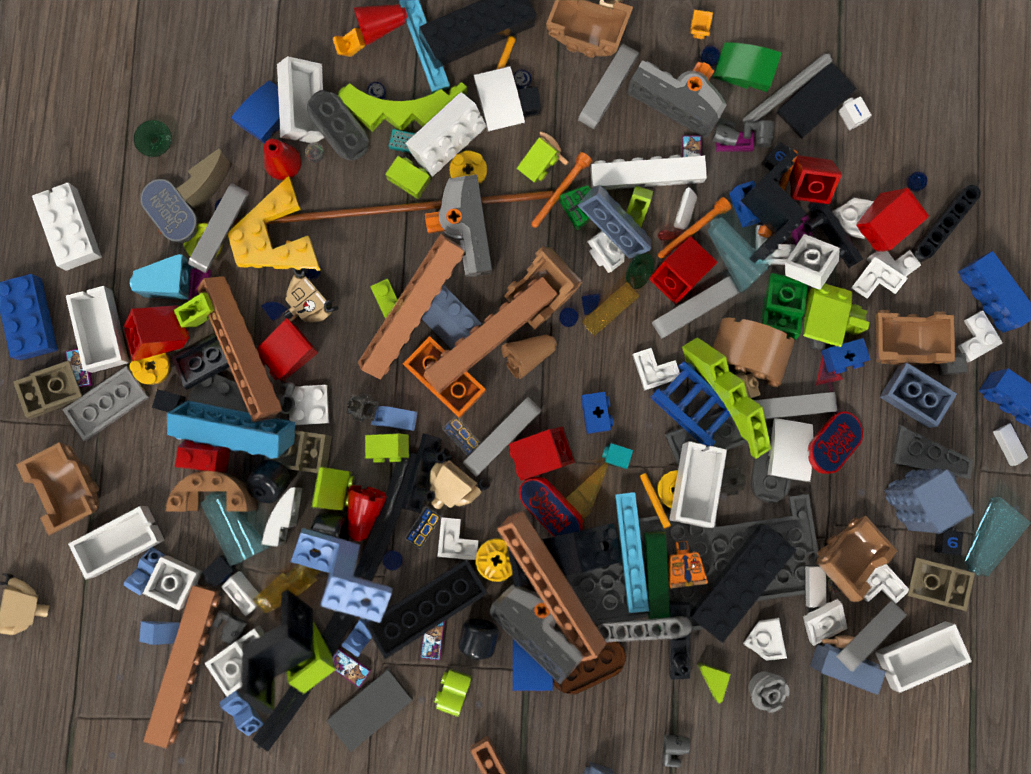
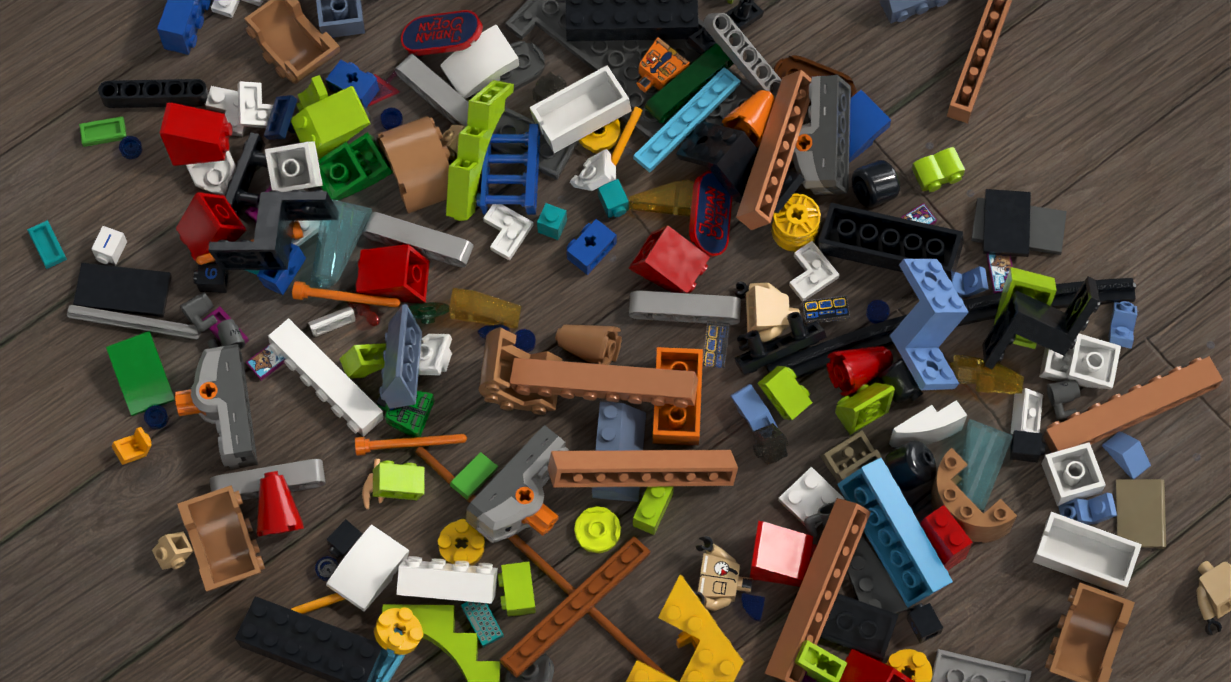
camera: 125 degrees left, 15 degrees down
(116, 604) = (1141, 511): none -> dark tan piece
(366, 200) = (574, 607): none -> dark orange tile
(376, 702) = (1007, 223): none -> black tile
(405, 258) = (597, 529): none -> neon yellow tile
(431, 67) = (401, 619): none -> yellow plate
(504, 211) = (473, 476): none -> bright green tile
(581, 70) = (276, 507): none -> red cone
(594, 594) = (752, 116): none -> orange cone
(635, 402) = (552, 221): none -> teal brick
(645, 461) = (596, 172): none -> white plate
(799, 362) = (391, 118): none -> clear blue tile
(858, 286) = (280, 118): none -> dark blue tile
(888, 79) = (47, 244): none -> teal tile
(943, 173) = (103, 131): none -> bright green tile

